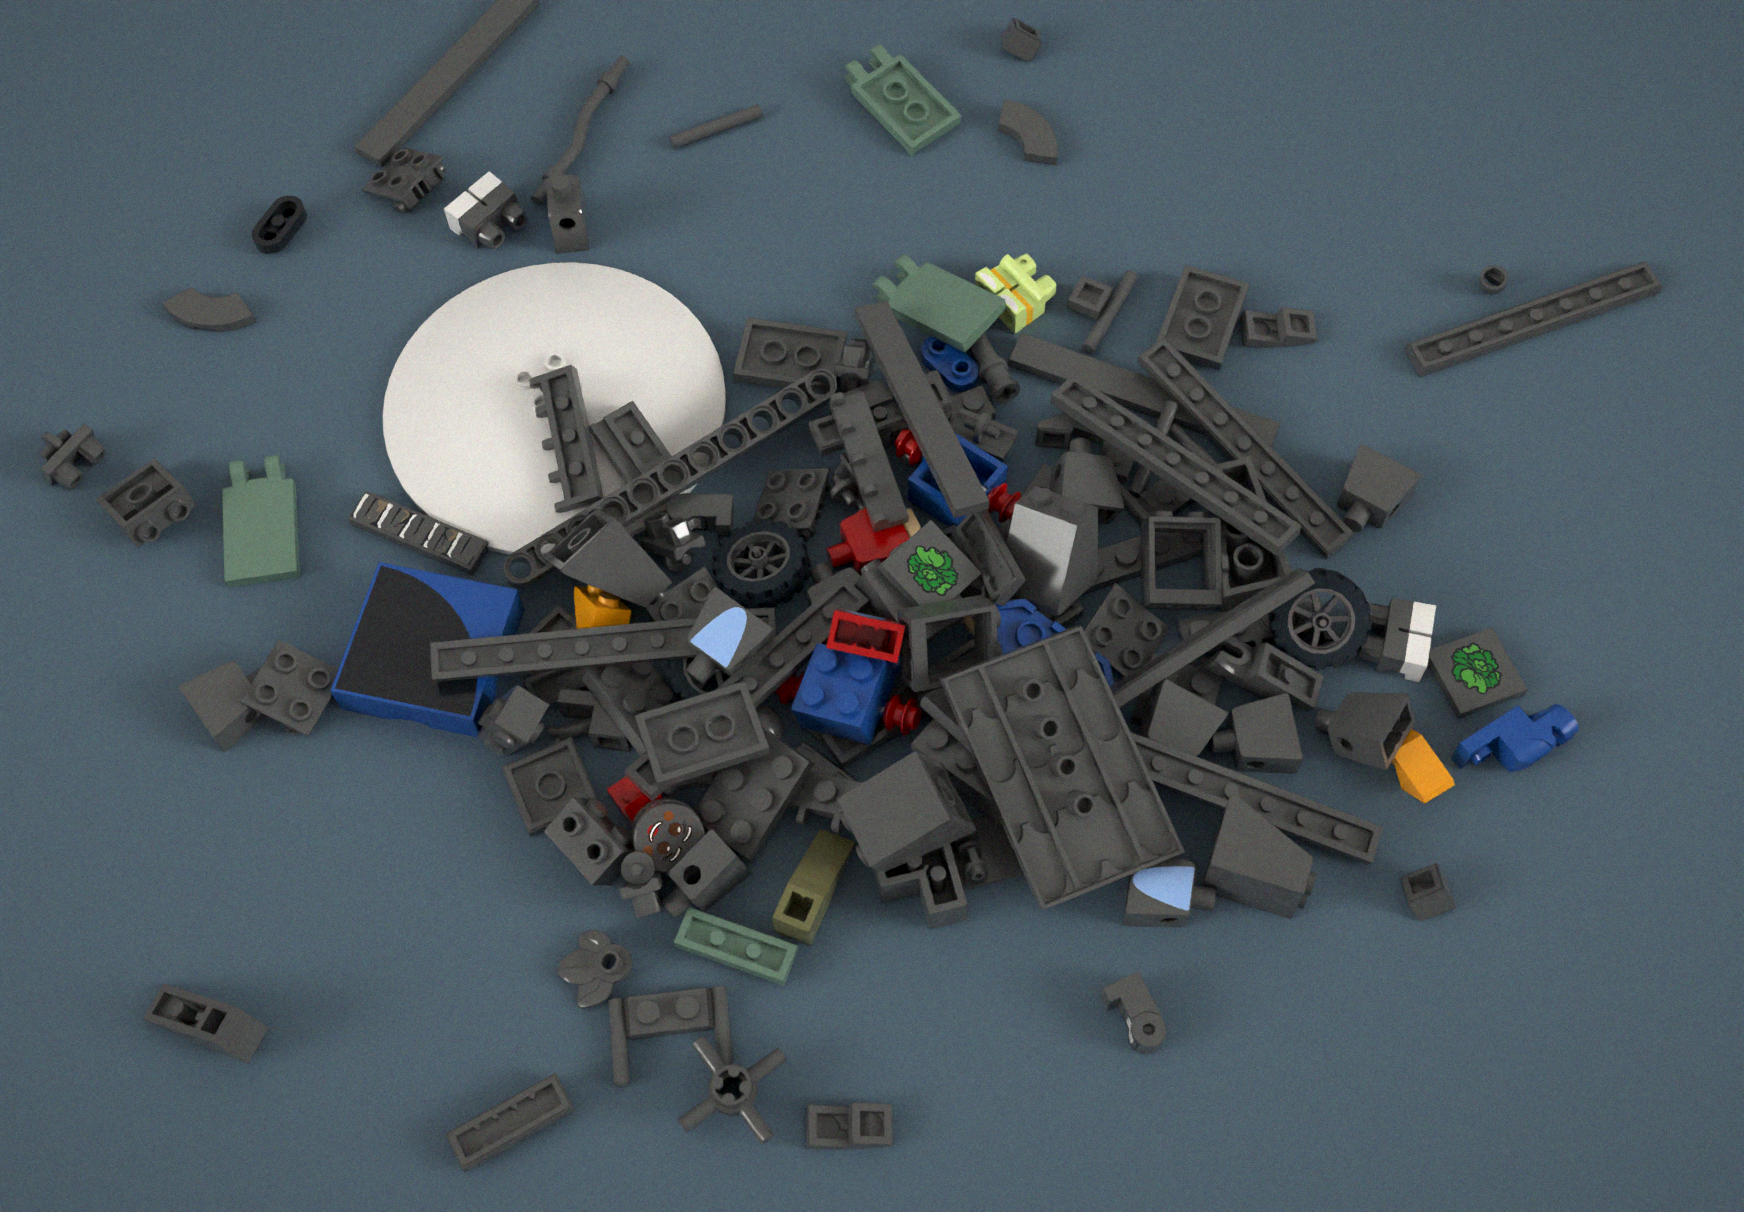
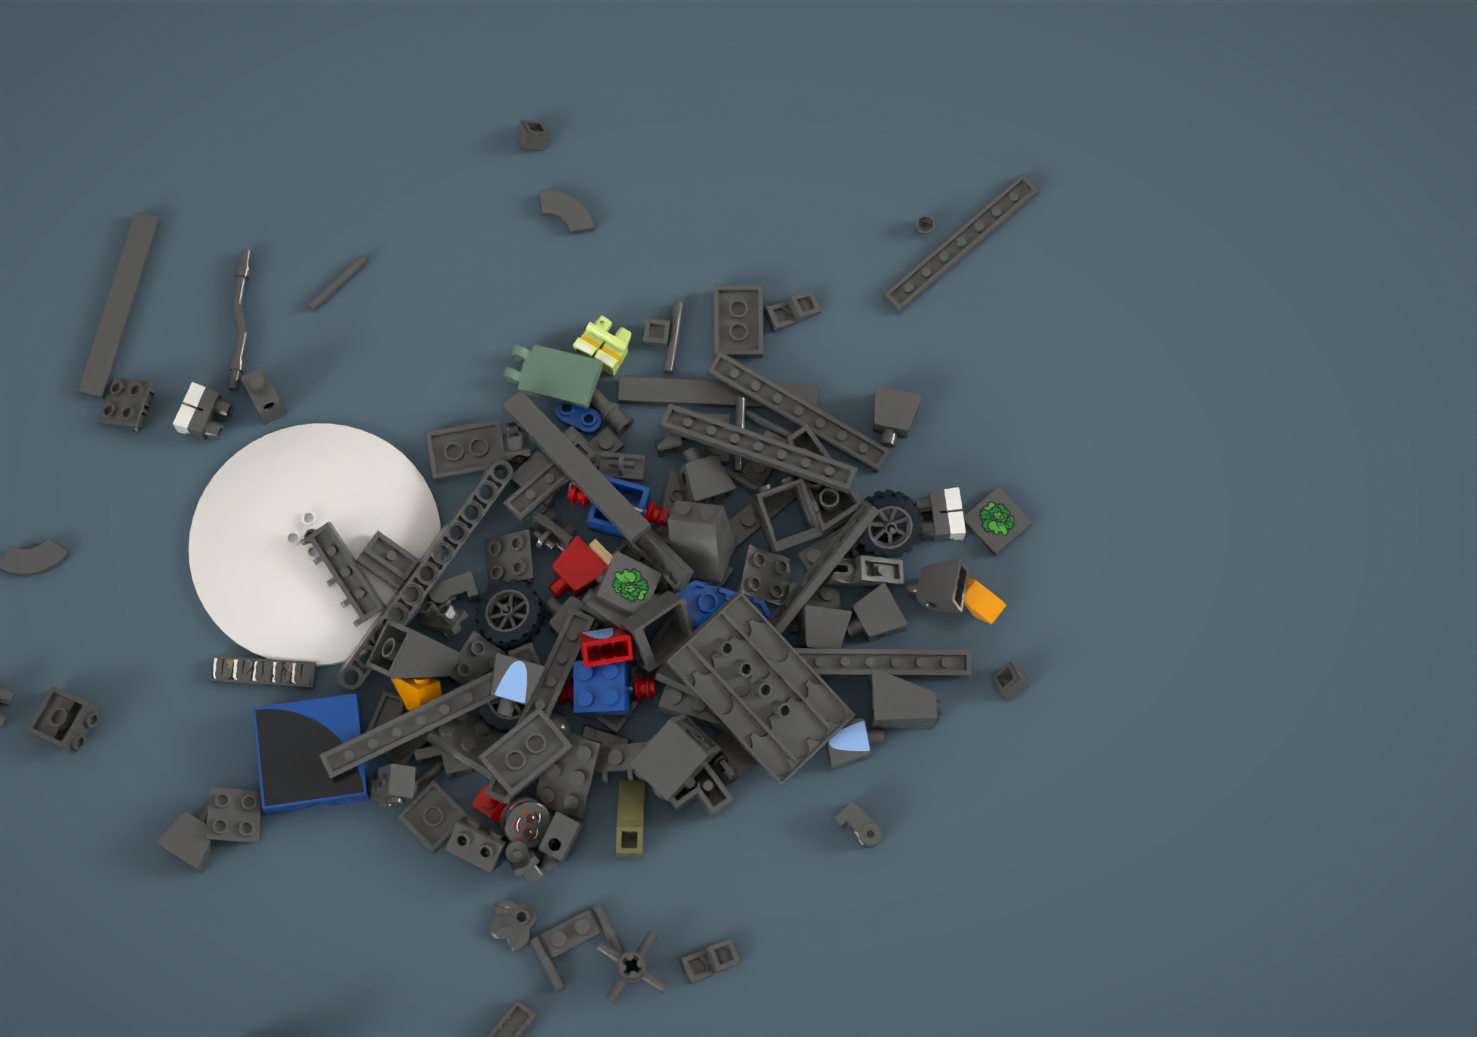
camera: 25 degrees left, 10 degrees up
(260, 526) = (150, 707): sand green tile -> none
(275, 227) = (52, 475): black plate -> none
(736, 946) = (596, 876): sand green plate -> none
(868, 460) = (555, 517): dark grey hinge -> none
(901, 100) = (464, 215): sand green tile -> none
(1518, 738) = (1037, 558): blue plate -> none

